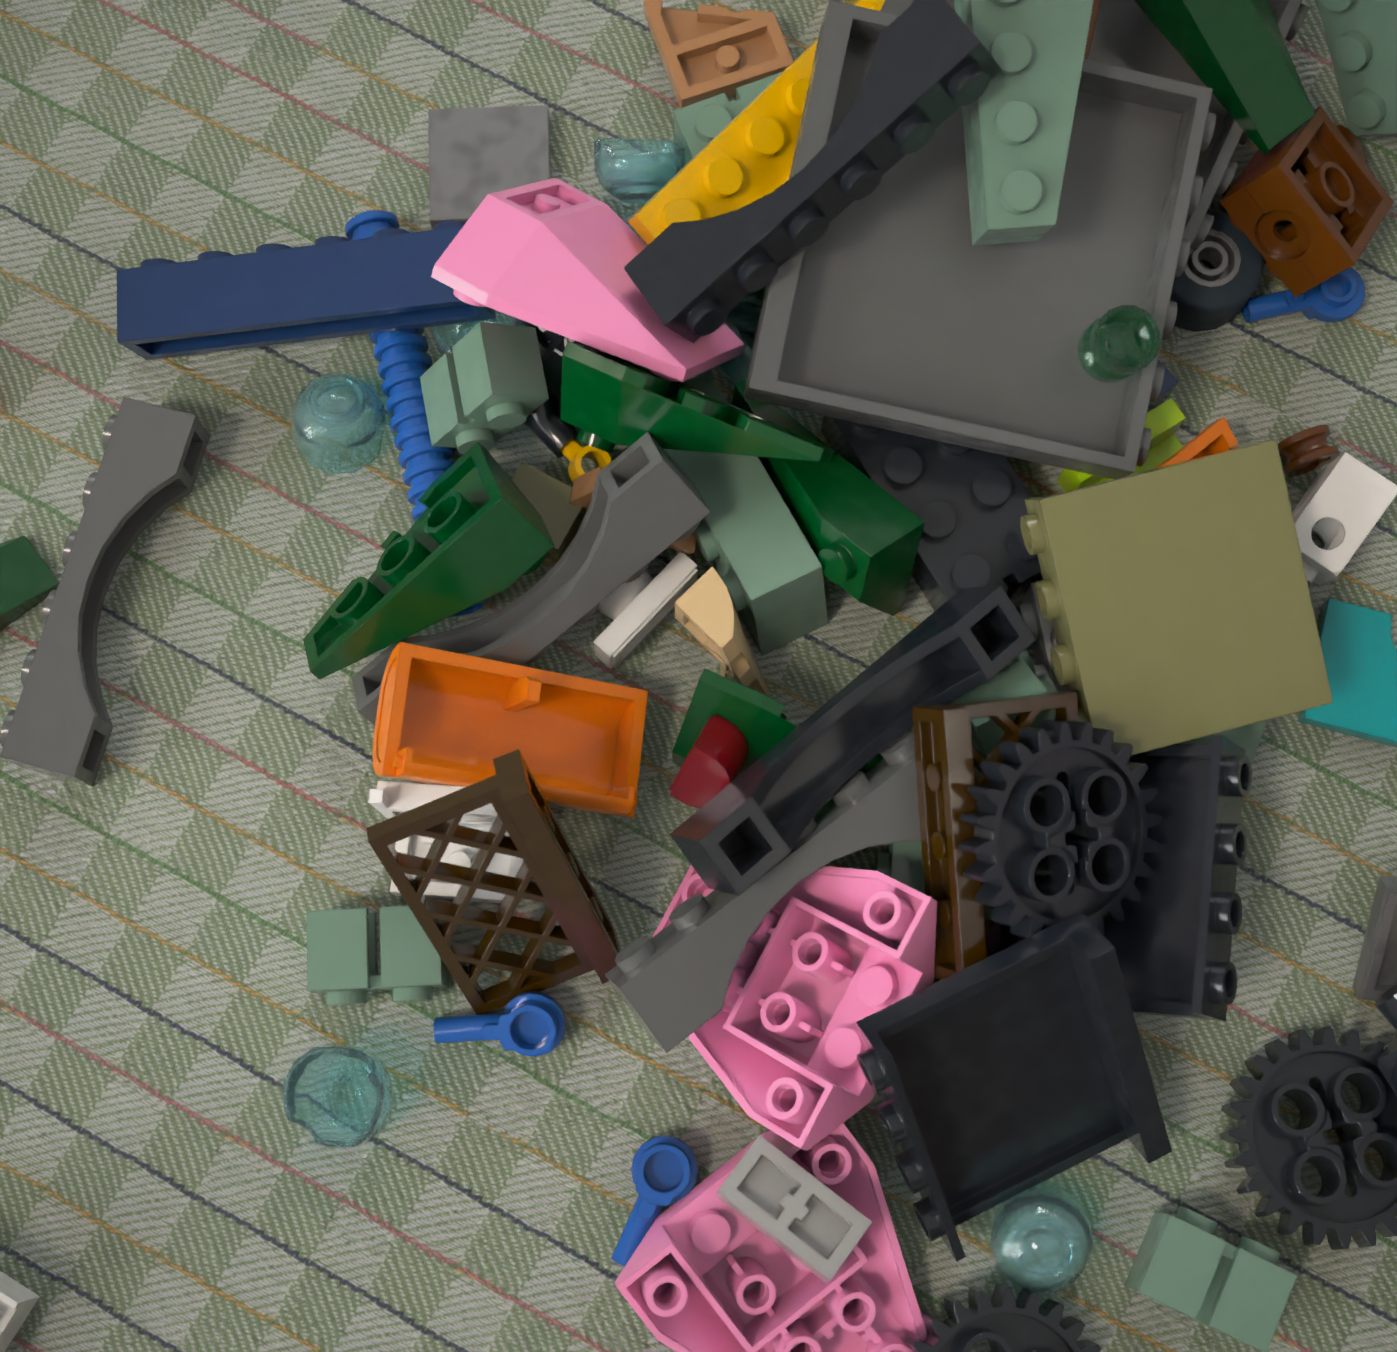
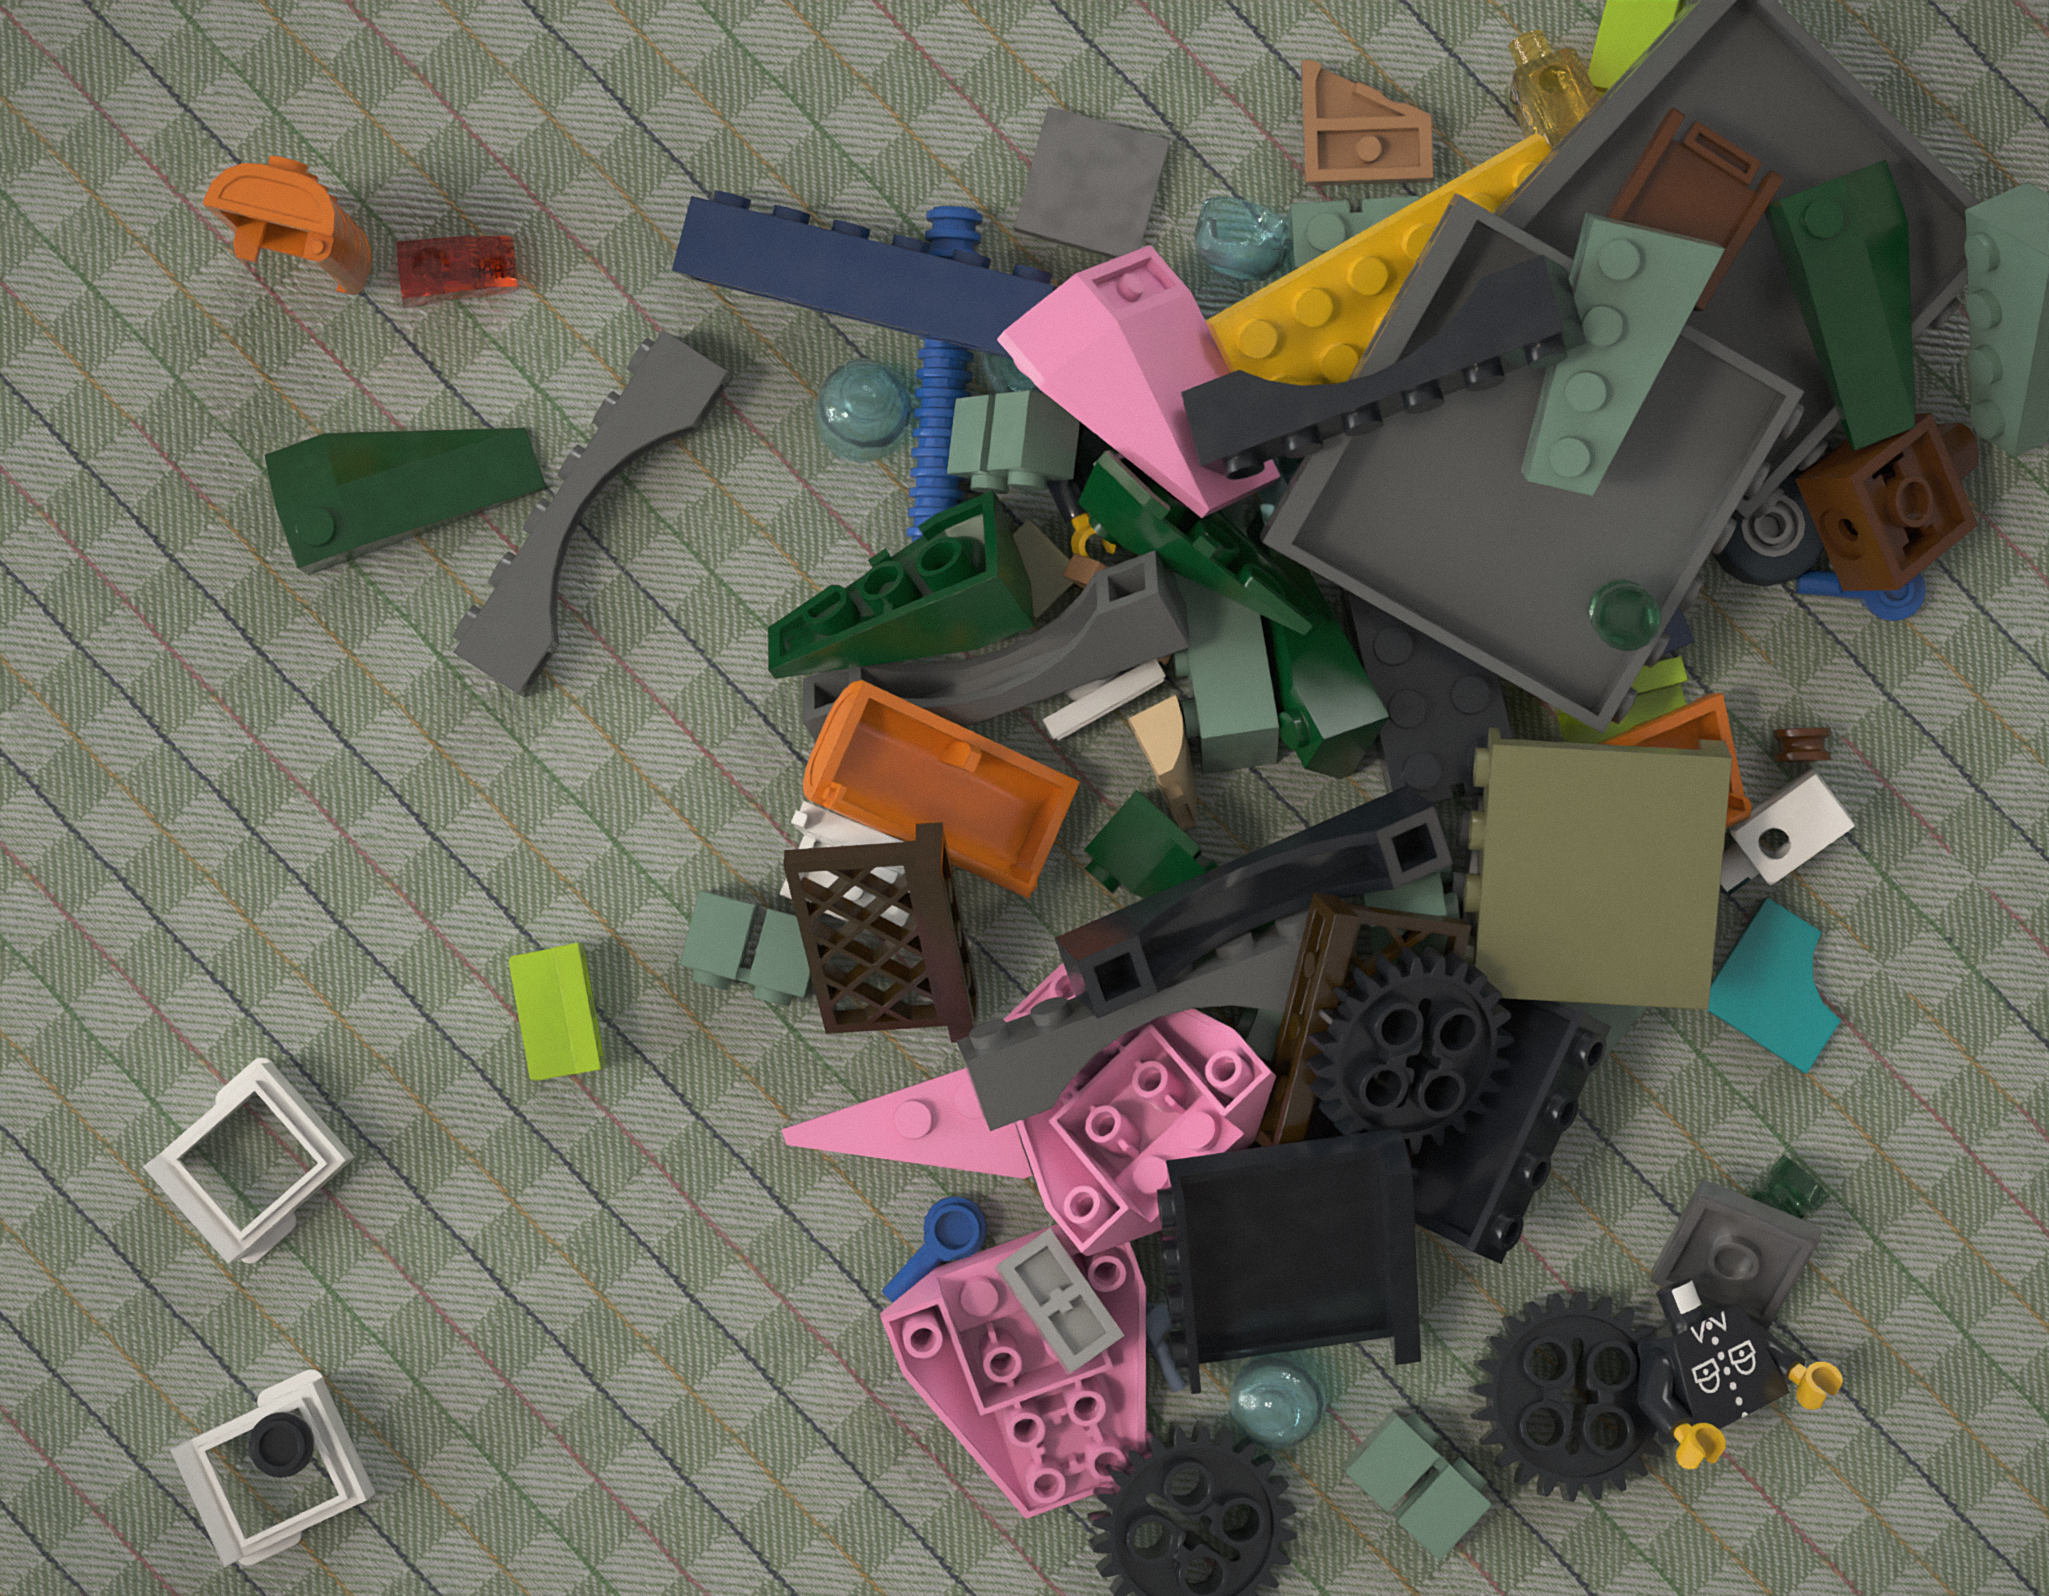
camera: 20 degrees right, 10 degrees up
(205, 1080) = (557, 1012): none -> lime panel
(338, 1095) = (679, 1066): clear light blue hair -> none
(529, 1025) = (870, 1057): blue plate -> none
(599, 1076) = (919, 1124): none -> bright pink wing
(710, 763) = (1114, 878): dark red brick -> none
(899, 1201) = (1157, 1328): none -> sand blue hand

